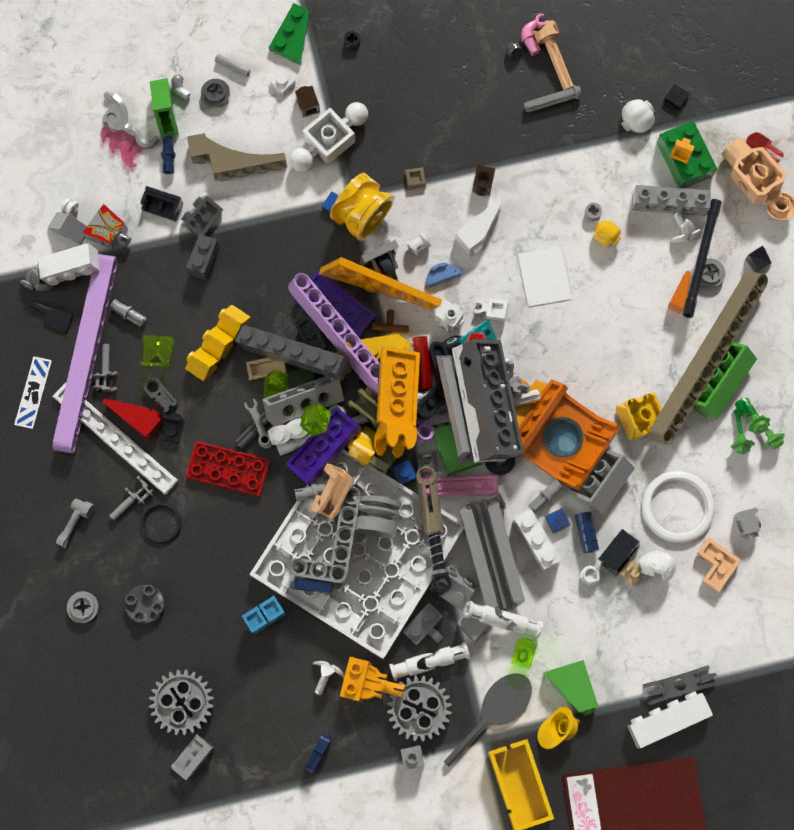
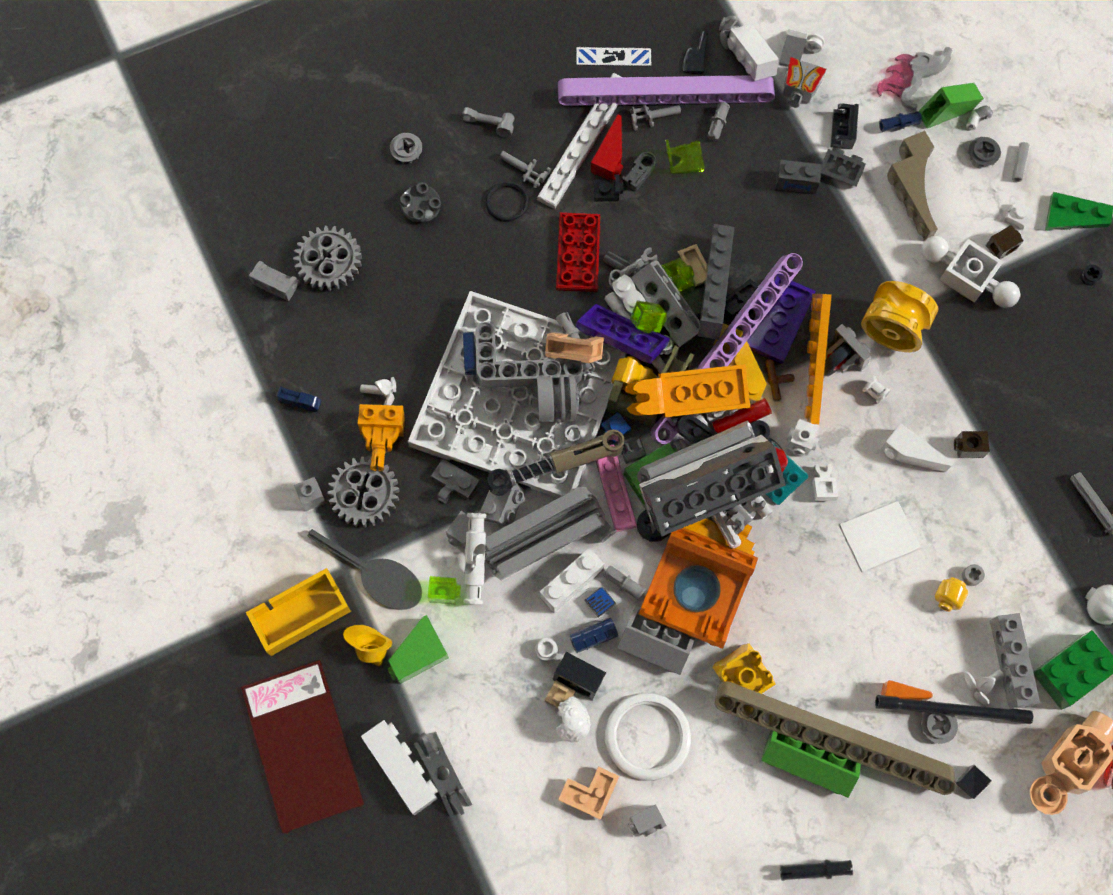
camera: 75 degrees right, 5 degrees down
(216, 343) = (708, 209): yellow brick -> none
(265, 615) = (429, 312): dark azure hips -> none
(415, 178) = (952, 373): dark tan tile -> none
(441, 273) = (850, 422): medium blue tile -> none
(442, 657) = (422, 506): white piece -> none
(682, 150) = (1078, 655): light orange tile -> none
(758, 425) = (764, 806): bright green plant -> none

